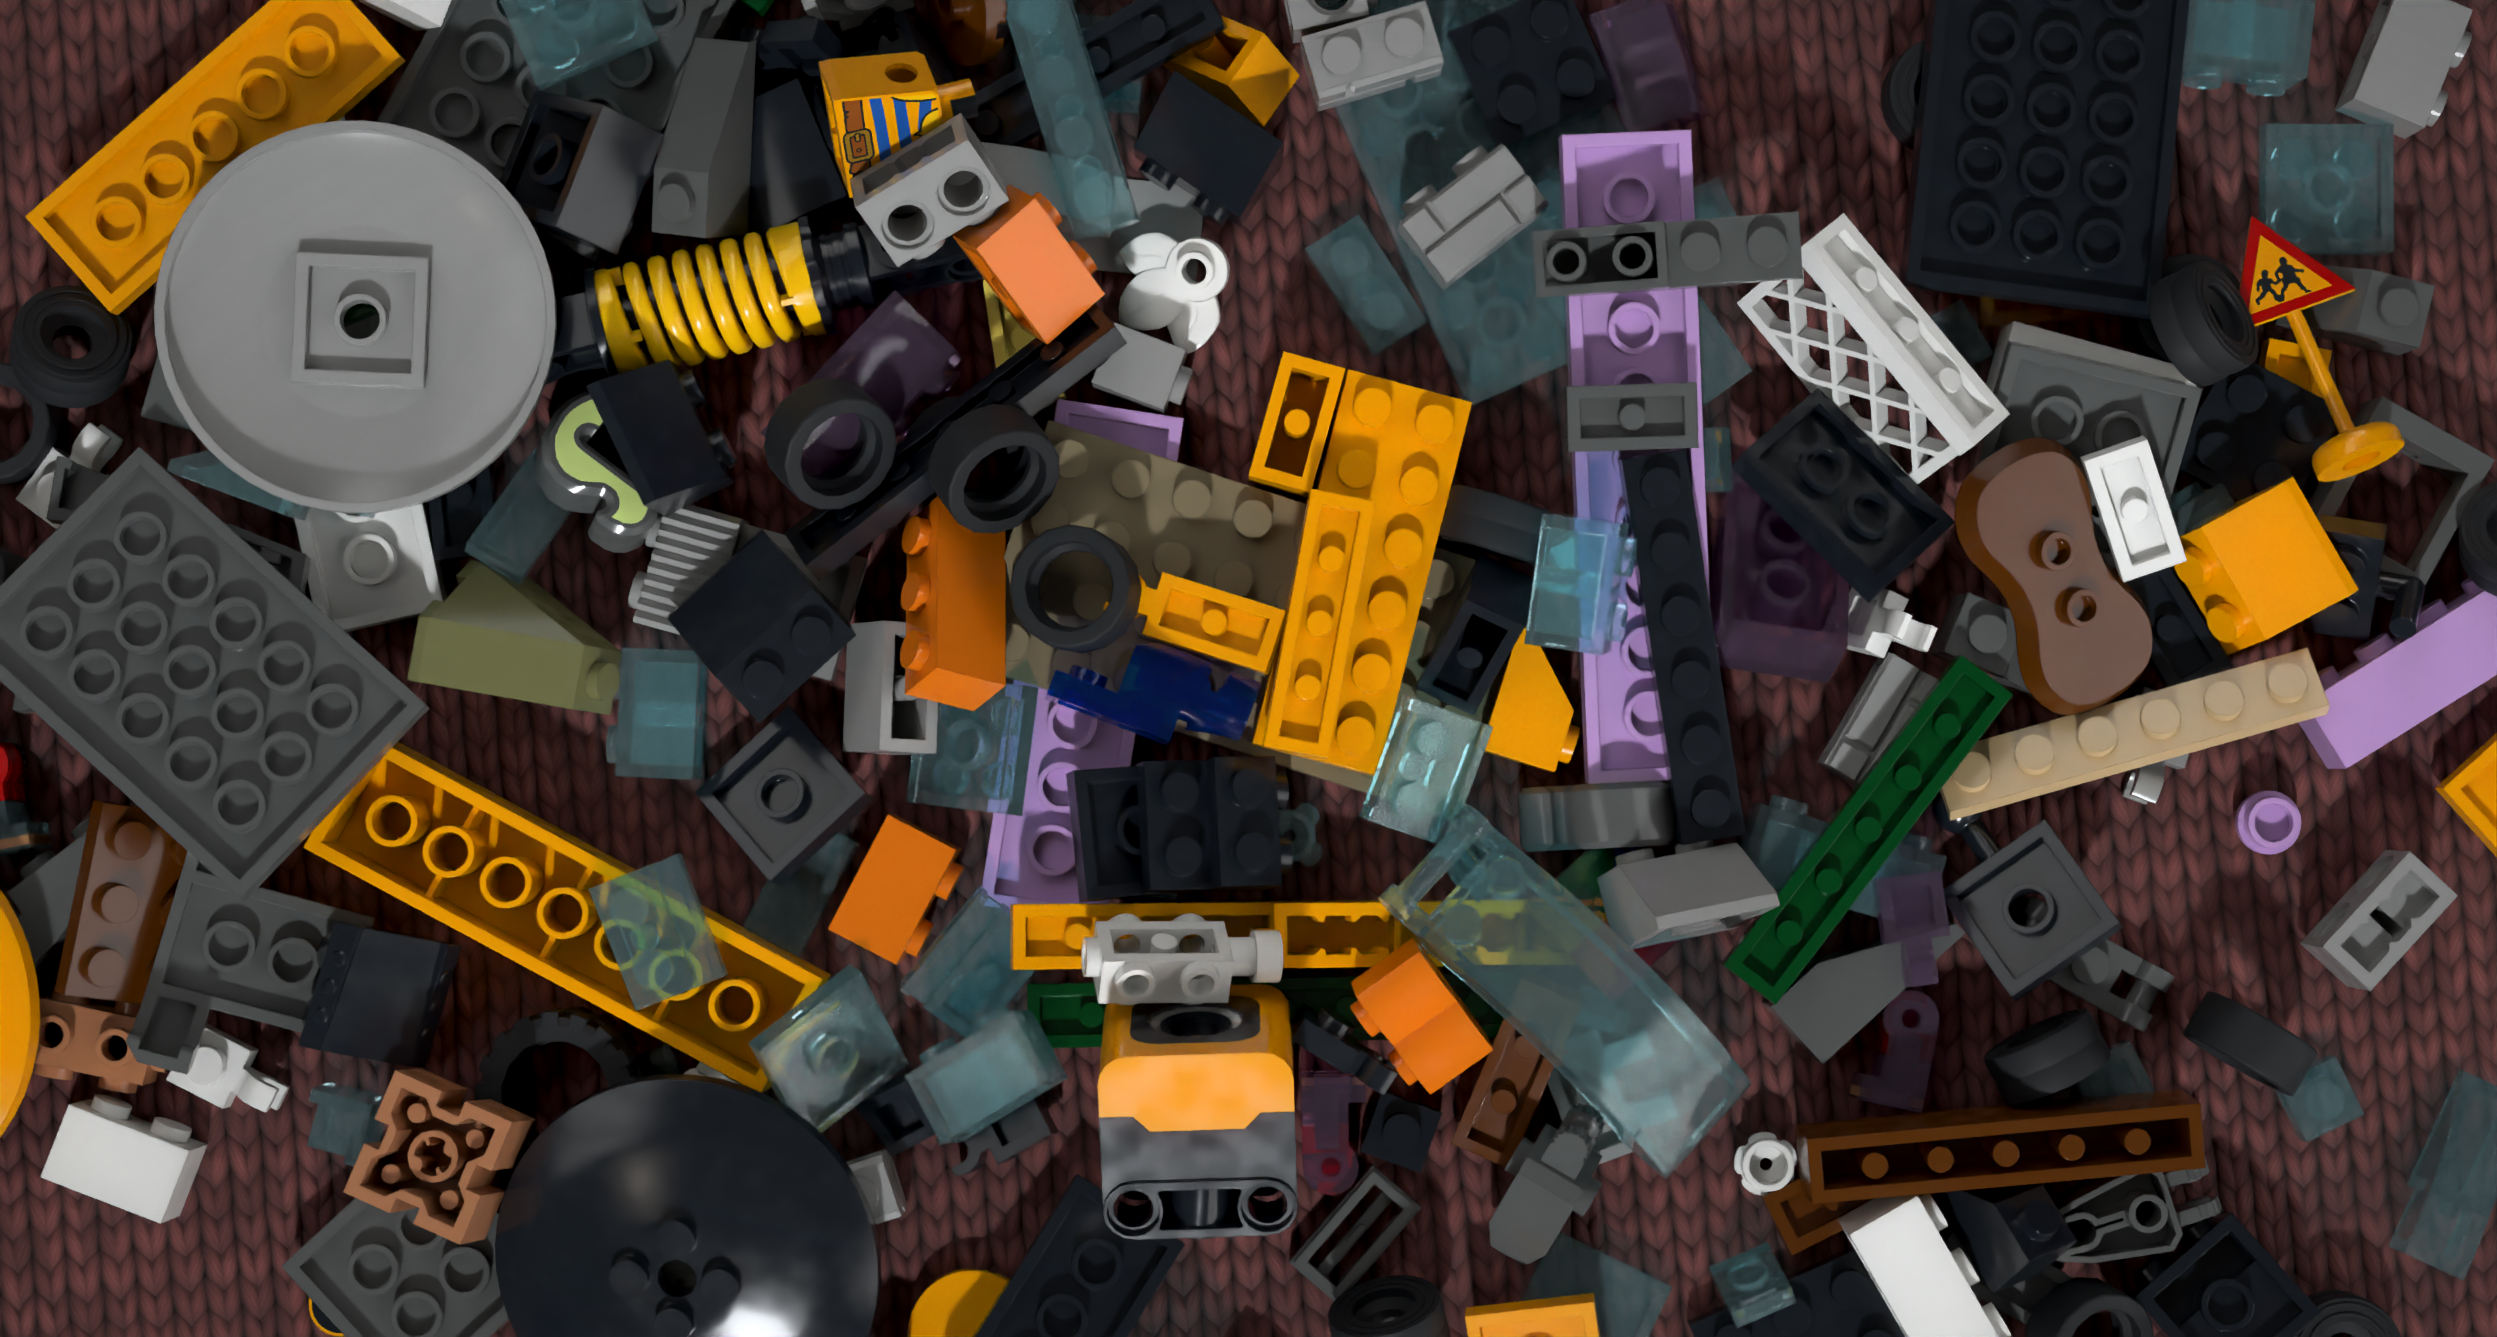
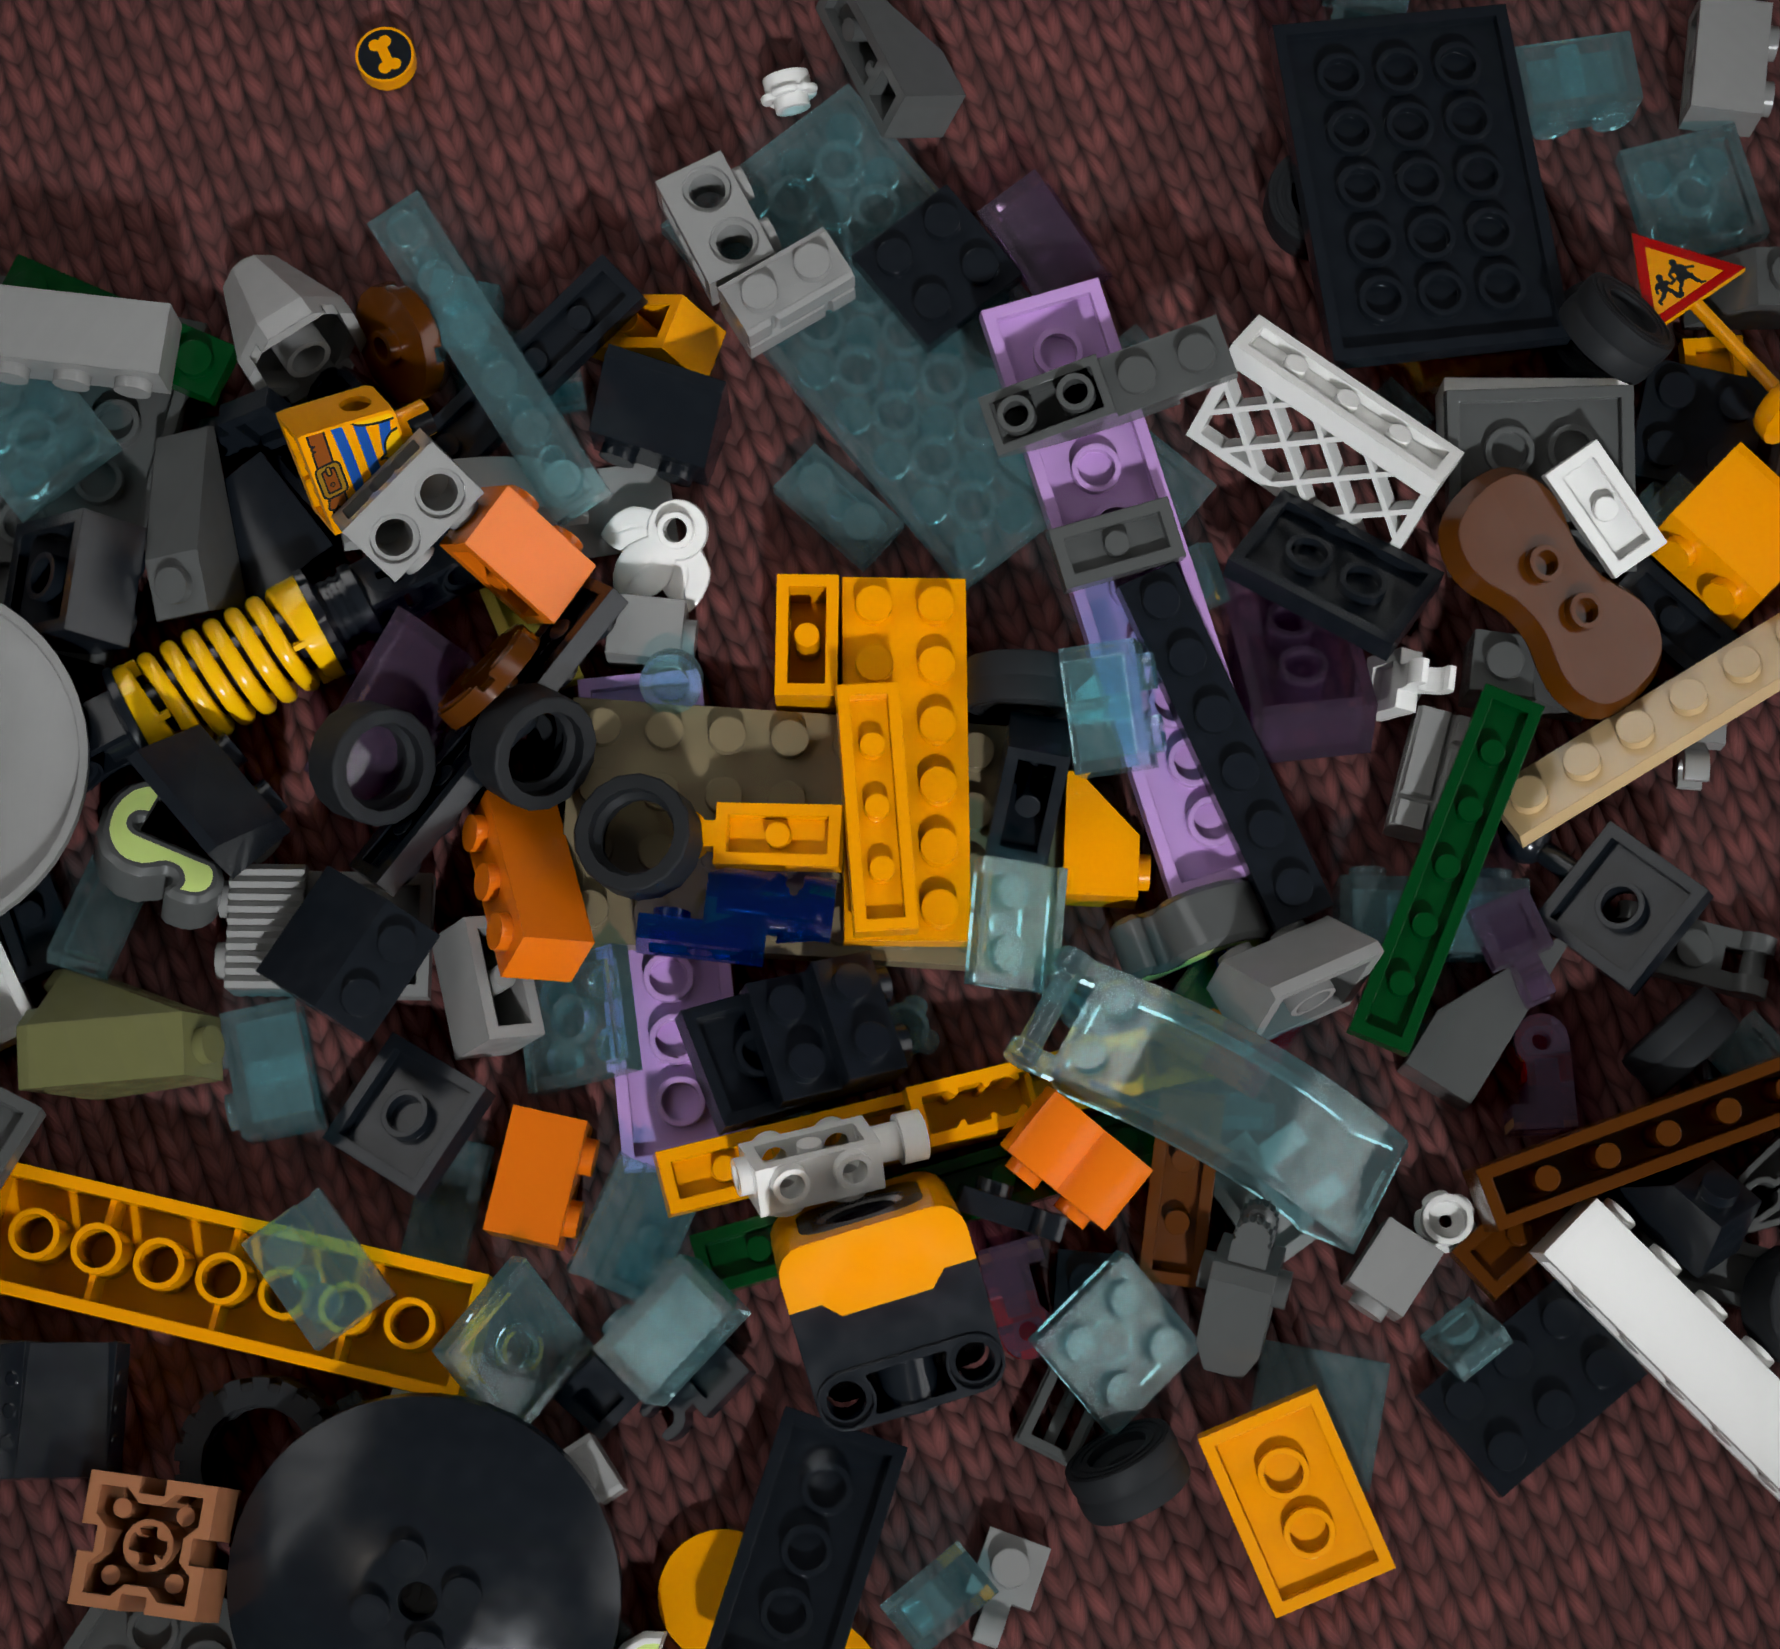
camera: 15 degrees left, 10 degrees down
(344, 1120) = (52, 1548): clear light blue panel -> none
(965, 389) = (489, 677): none -> reddish brown plate
(1150, 429) = (671, 681): none -> clear light blue tile
(1412, 1199) = (1115, 1342): none -> clear light blue plate
(1471, 214) = (917, 410): light grey brick -> none
(1698, 1200) = (1390, 1271): none -> light grey brick

